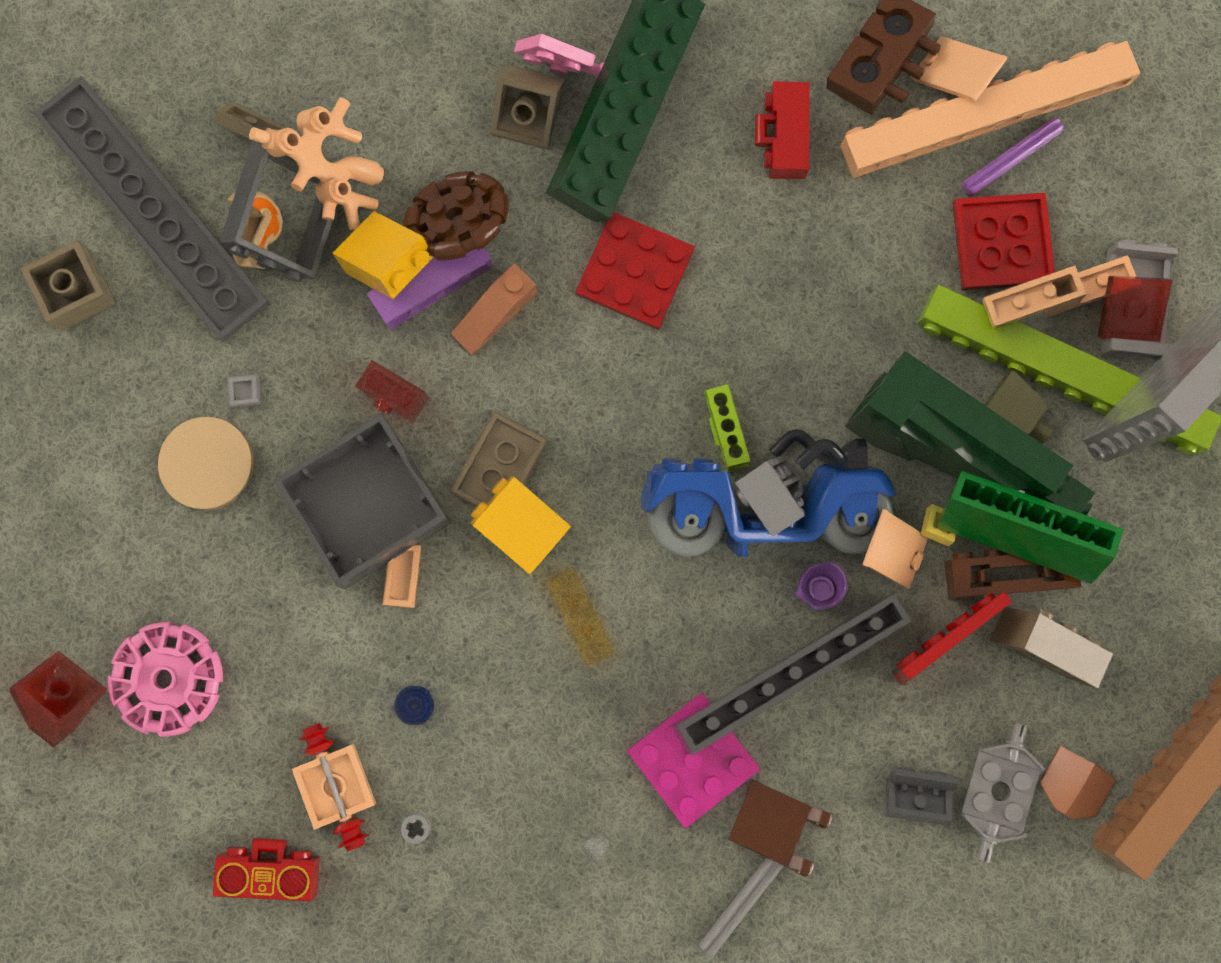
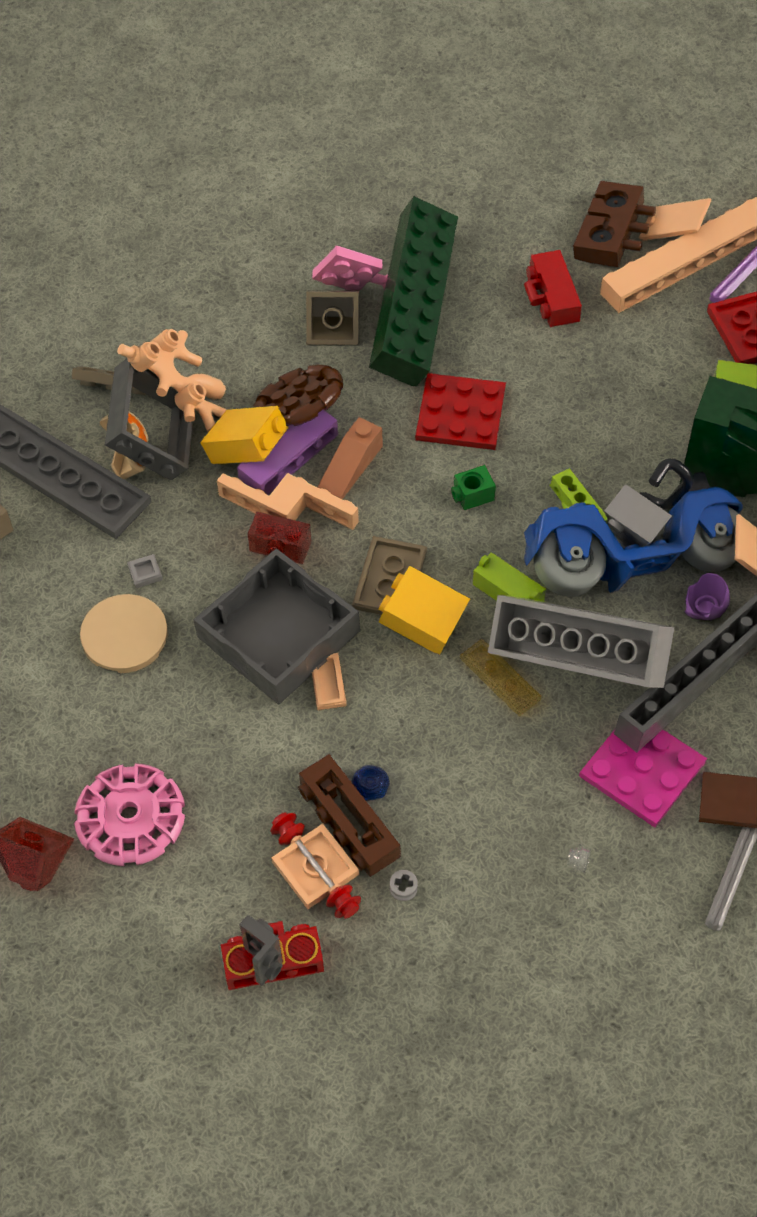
camera: 10 degrees left, 25 degrees down
(247, 889) = (264, 946): none -> dark grey bracket
(371, 759) = (370, 855): none -> reddish brown brick
(414, 344) = (289, 499): none -> light nougat bracket
(619, 515) = (500, 578): none -> lime brick
(627, 370) = (473, 487): none -> green brick
(664, 627) = (581, 641): none -> light grey brick

